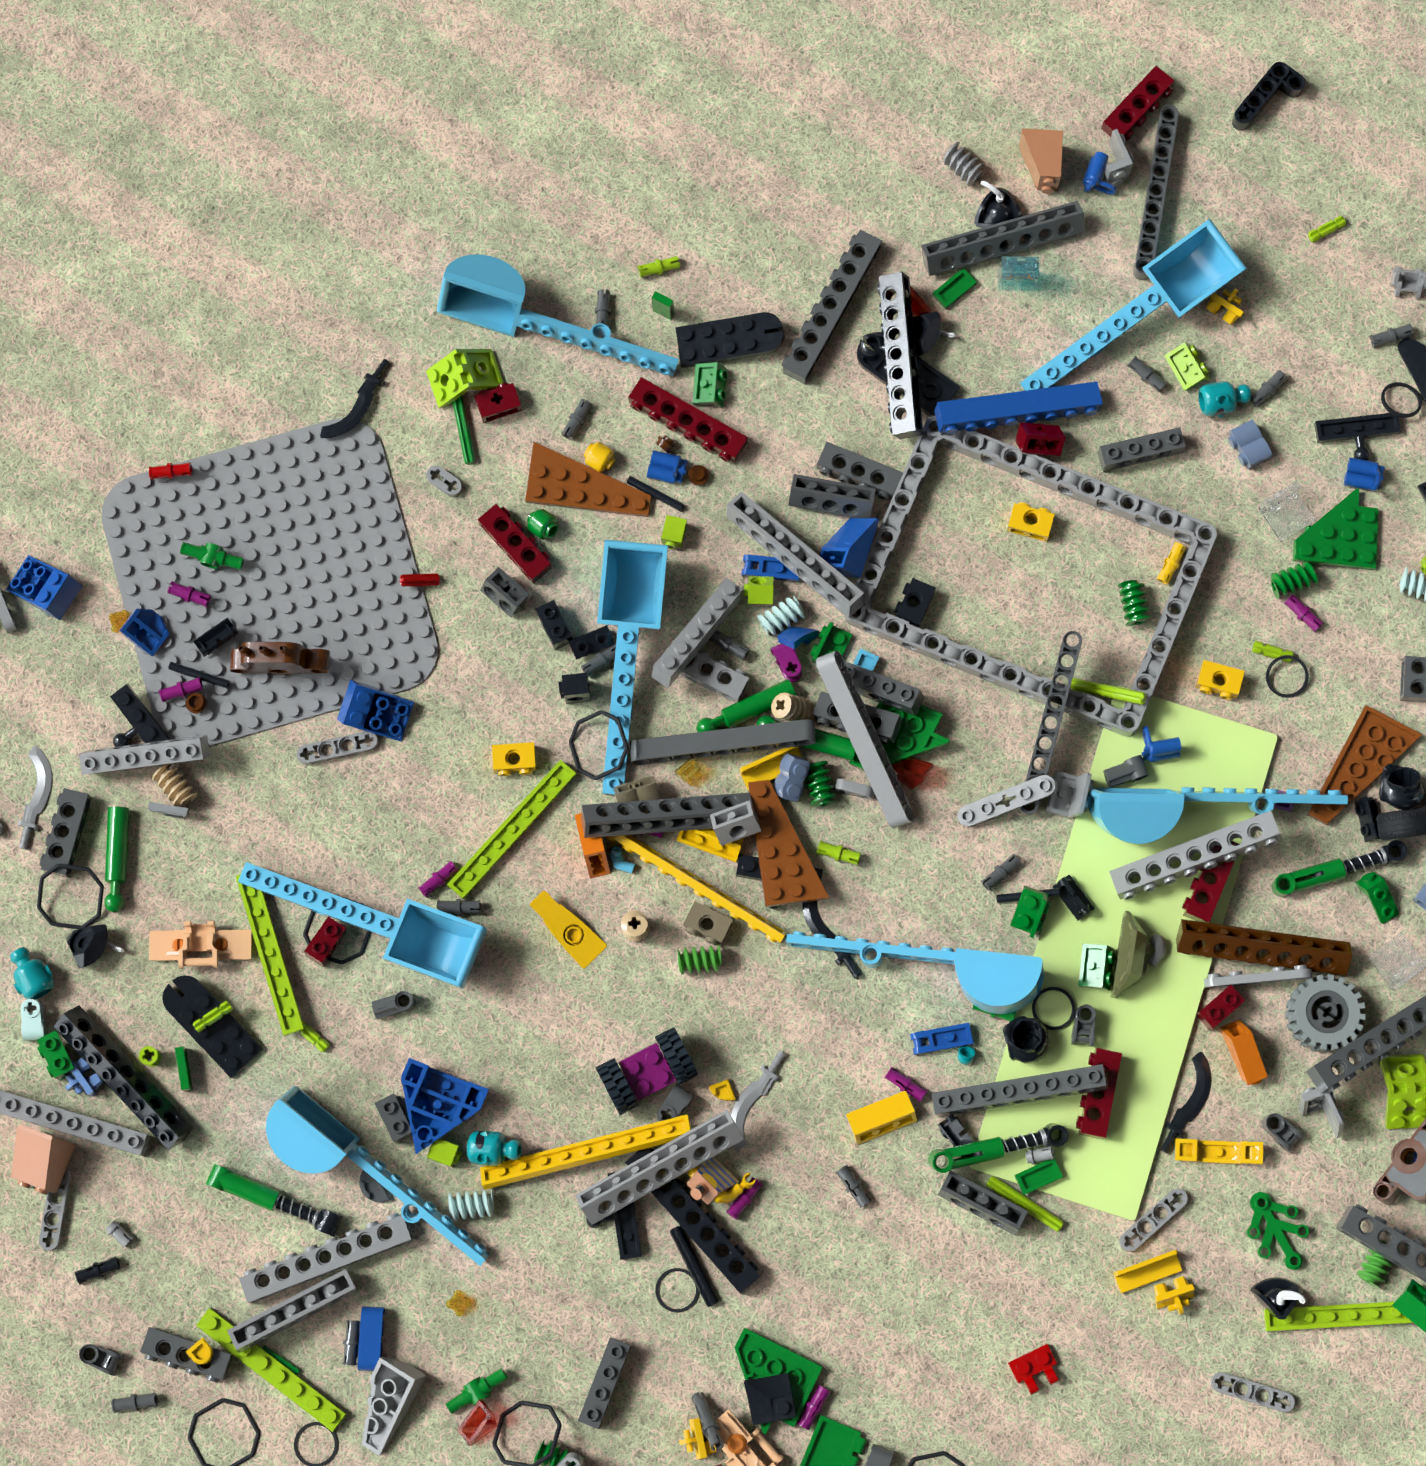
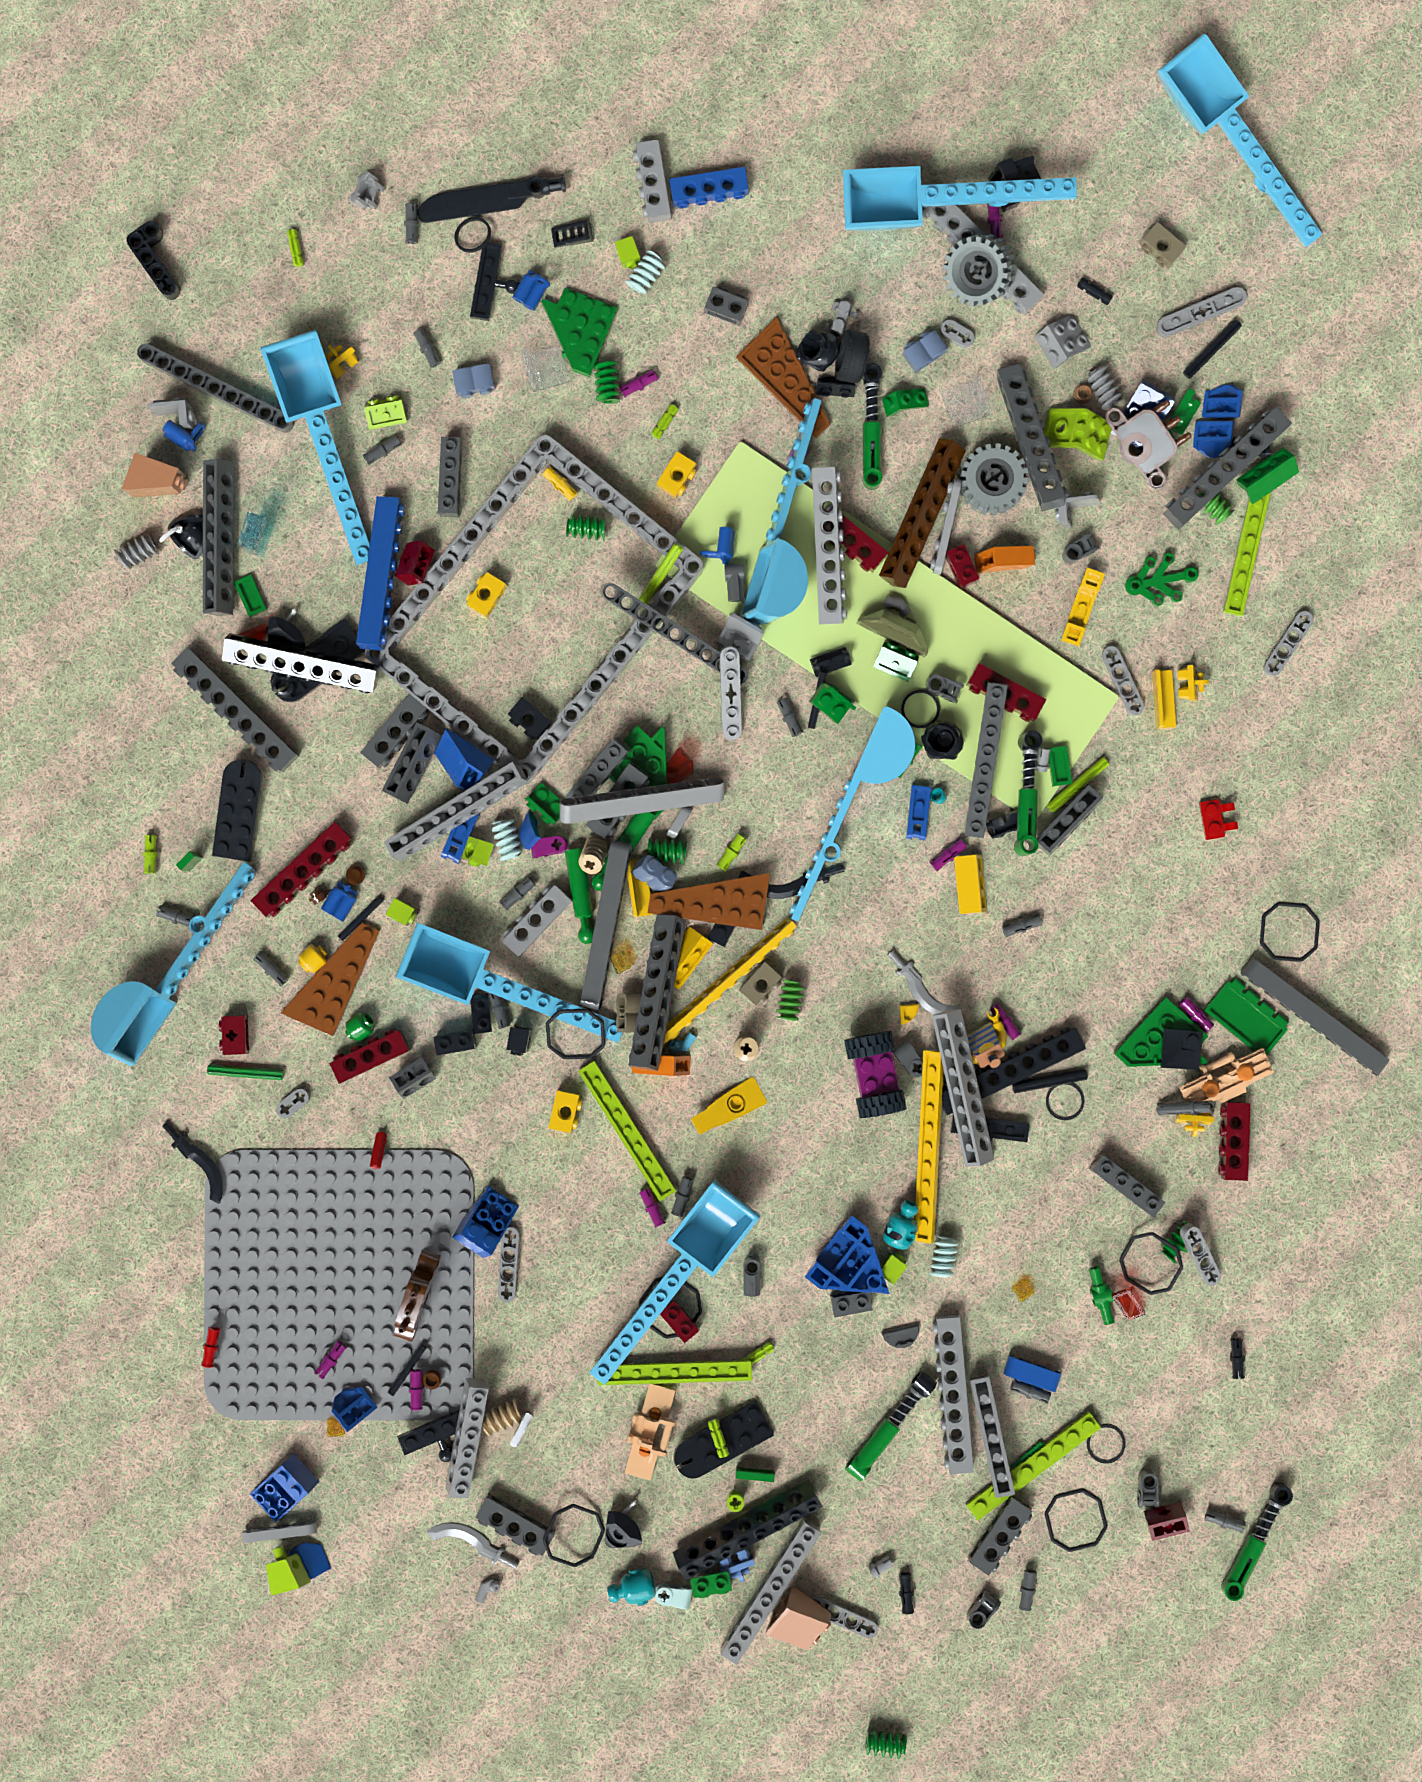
camera: 75 degrees left, 10 degrees up
(116, 856) = (549, 1485): green piece -> none
(201, 1352) = (1005, 1523): yellow tile -> none
(211, 555) = (301, 1330): green pin -> none
(215, 637) = (377, 1346): black hinge -> none
(315, 1142) = (855, 1376): medium azure plate -> none
(391, 1396) = (1084, 1368): light grey wedge -> none
(463, 374) = (199, 1058): lime bracket -> none
(697, 633) = (502, 918): light grey brick -> none
(709, 384) = (274, 840): green bracket -> none
(735, 822) = (682, 935): light grey brick -> none
(866, 660) = (569, 777): medium azure plate -> none
(1154, 80) = (110, 354): dark red brick -> none
(1193, 1105) = (1035, 615): black sword -> none
(1222, 398) = (424, 390): teal piece -> none
(1278, 1296) = (1218, 596): black hat -> none
(1284, 657) = (706, 411): black piece -> none

